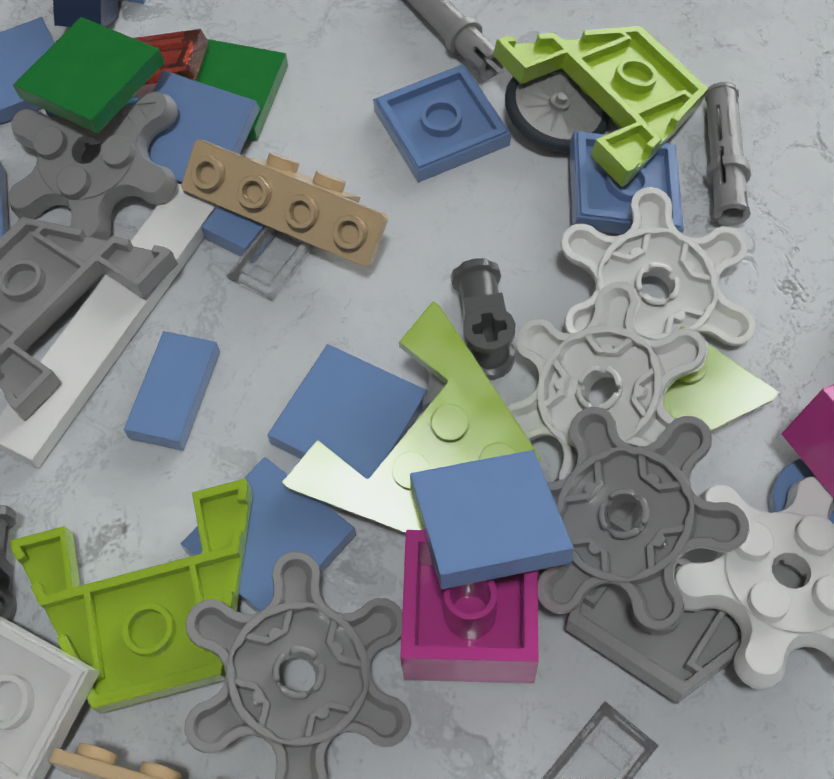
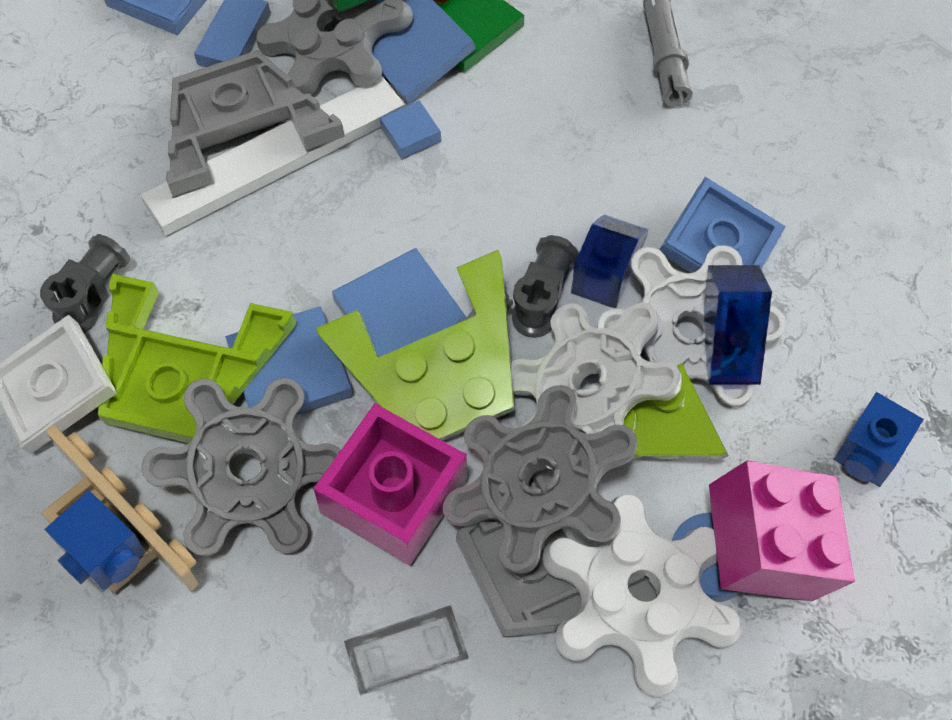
camera: 25 degrees right, 0 degrees up
(172, 390) = (287, 226): medium blue tile -> none
(269, 262) = (427, 162): clear tile -> none
(287, 200) = (452, 126): tan bracket -> none
(441, 122) = (612, 123): medium blue tile -> none
(489, 519) = (435, 425): medium blue tile -> none
(532, 260) = (606, 260): none -> clear blue slope
(551, 110) = (710, 147): light grey wheel -> none
(626, 76) = (778, 154): lime wing -> none
(707, 258) = (736, 323): none -> clear blue slope
(728, 168) = (815, 265): light grey pin -> none

